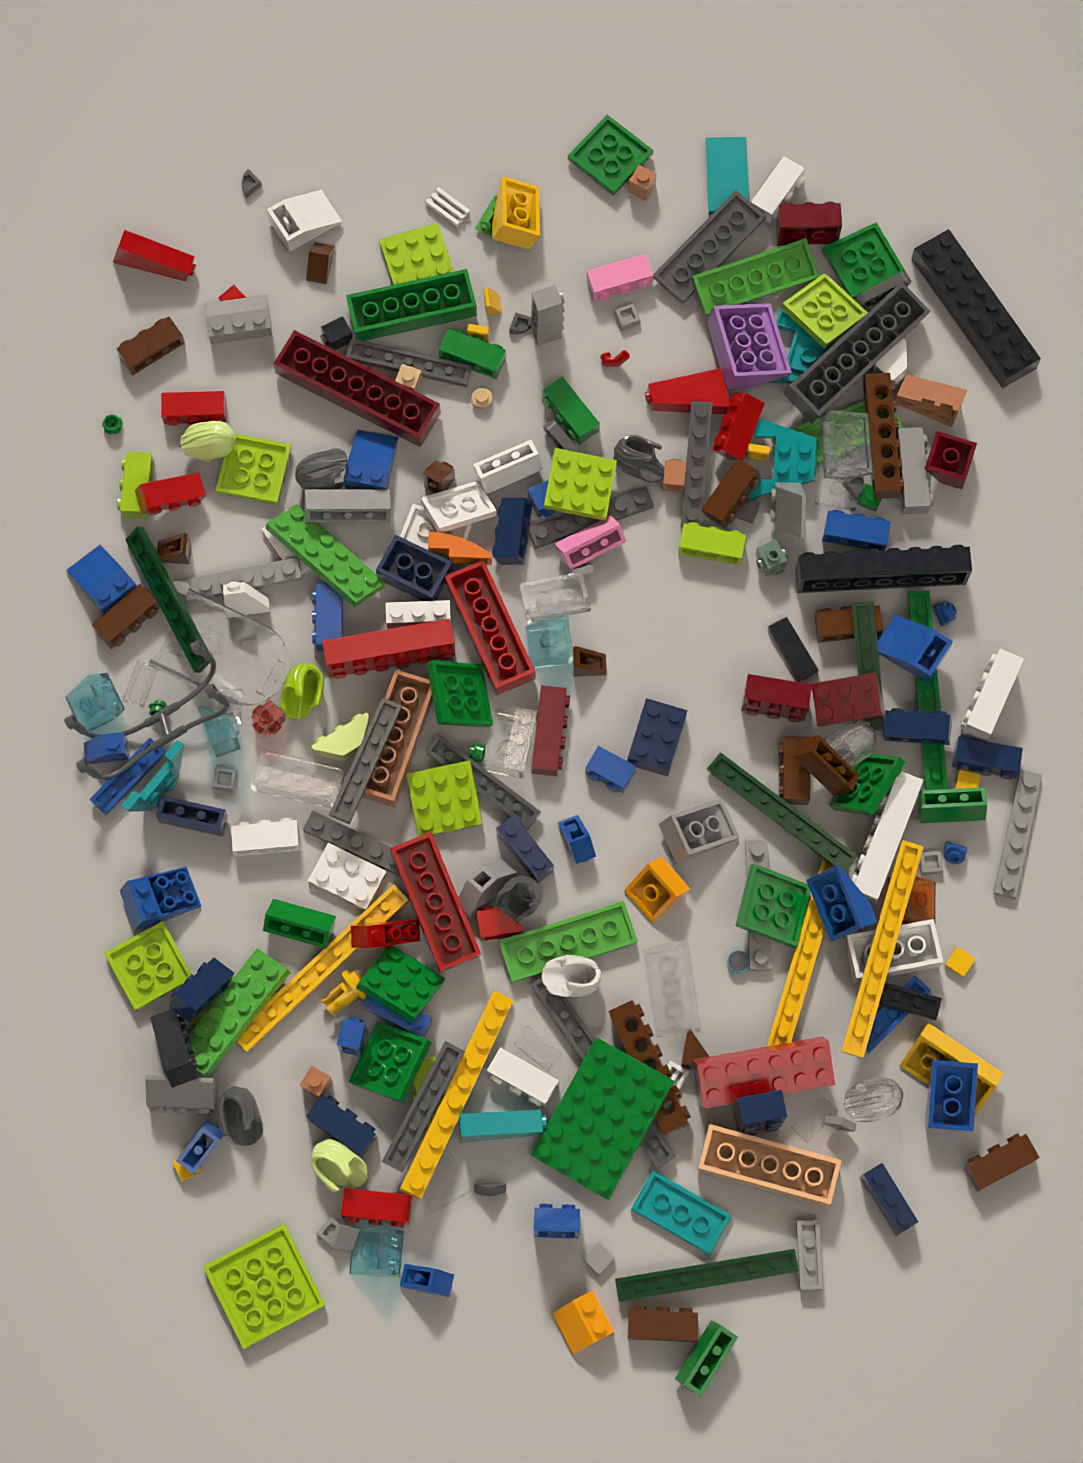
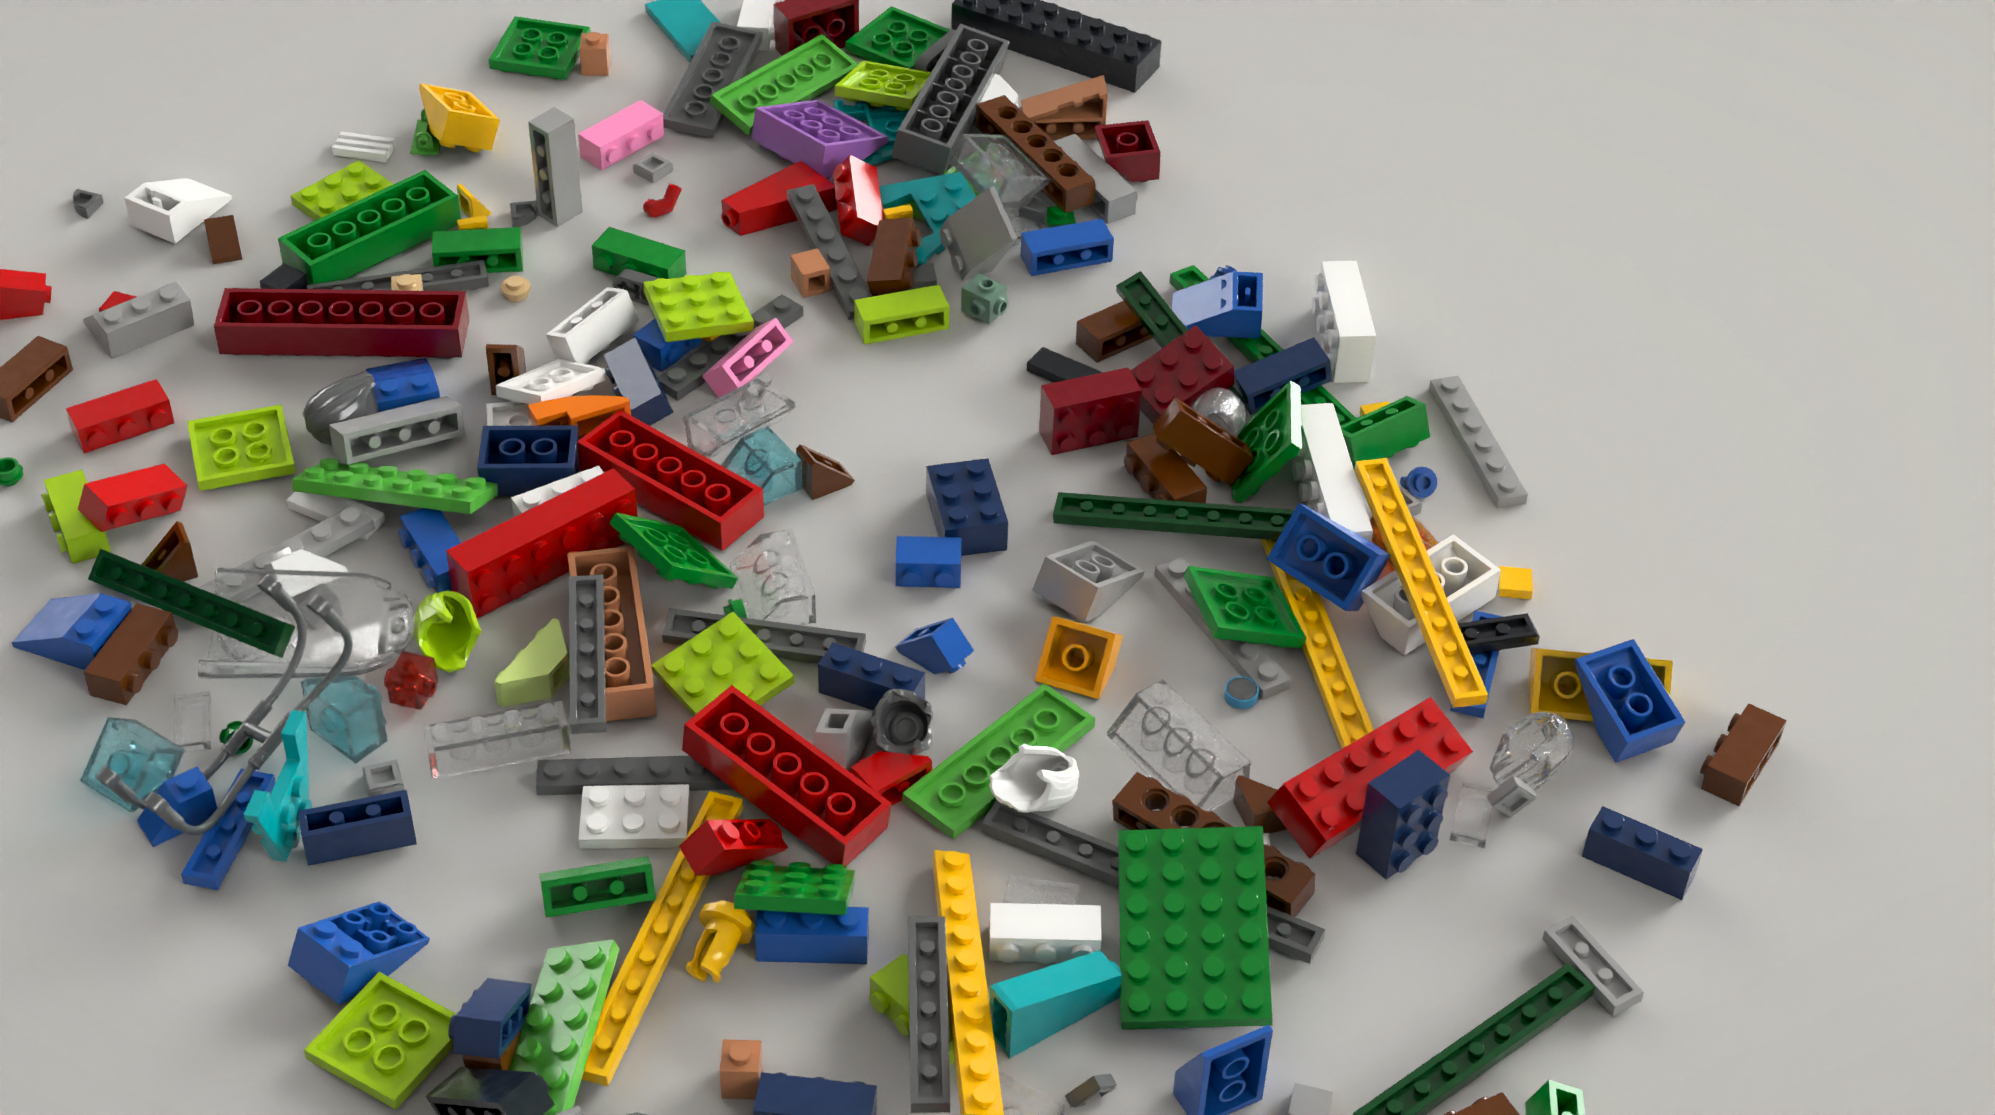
camera: 30 degrees left, 30 degrees down
(208, 440) = (164, 427): yellowish green hair -> none
(265, 837) = (485, 815): white brick -> none
(352, 1036) = (764, 982): blue brick -> none
(390, 1062) = (840, 989): green plate -> none
(549, 731) = (826, 562): dark red brick -> none
(638, 458) = (751, 265): dark grey hair -> none
(681, 1212) = (1381, 999): teal tile -> none
(769, 1165) = (1458, 881): light nougat brick -> none
(883, 569) = (1157, 245): black brick -> none
(987, 758) = (1383, 380): dark blue brick -> none

